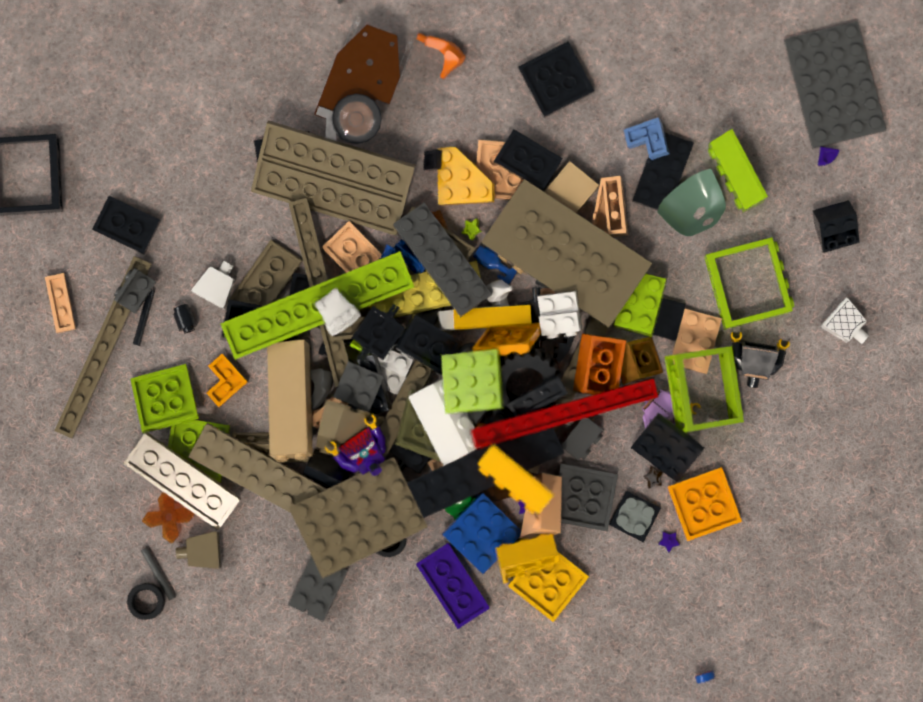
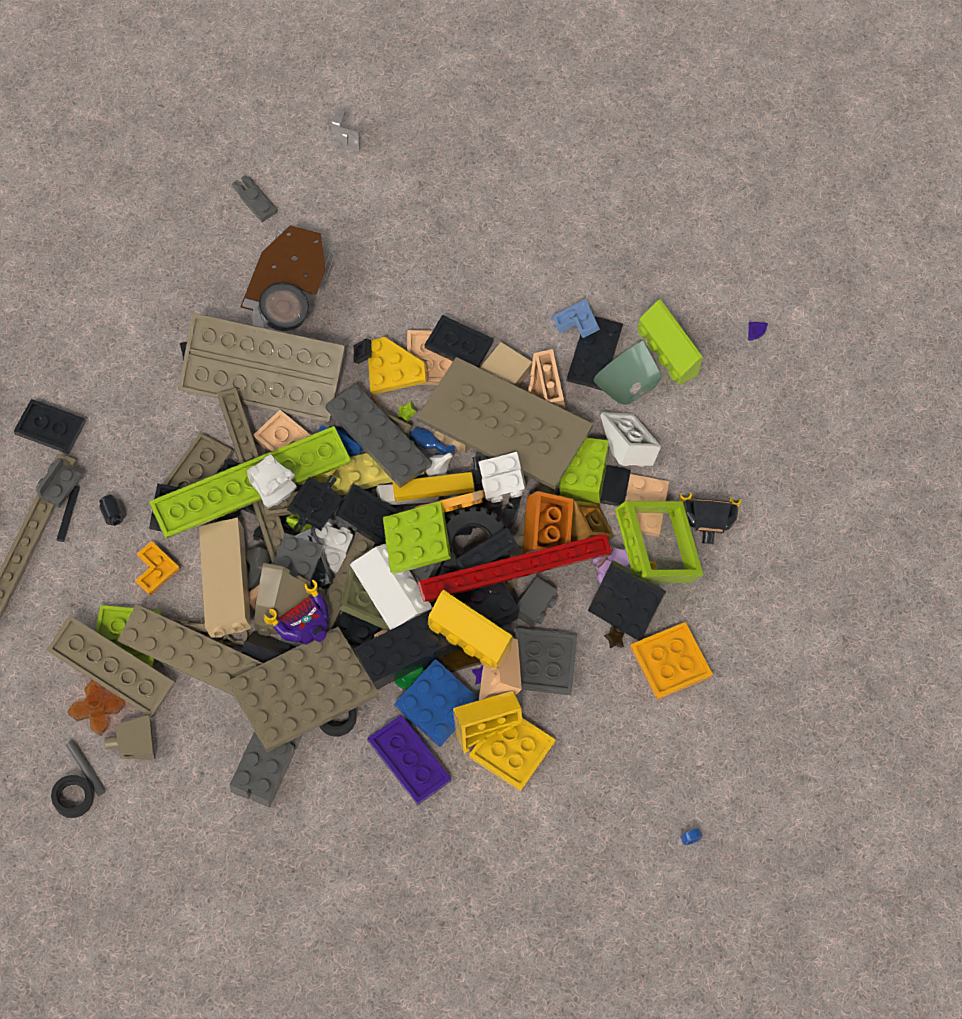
camera: 10 degrees left, 20 degrees down
(164, 398) = (90, 587): lime plate -> none
(216, 285) = (142, 477): white torso -> none
(452, 53) = (377, 257): orange animal -> none
(556, 79) = (481, 275): black plate -> none
(634, 516) = (598, 678): light grey piece -> none
(669, 541) = (637, 701): dark purple piece -> none
(687, 273) = (629, 439): none -> white slope
(719, 292) = (675, 483): lime window -> none
(834, 85) = (755, 268): dark grey plate -> none
(836, 226) = (774, 390): black slope -> none
(846, 323) = (795, 477): white torso -> none

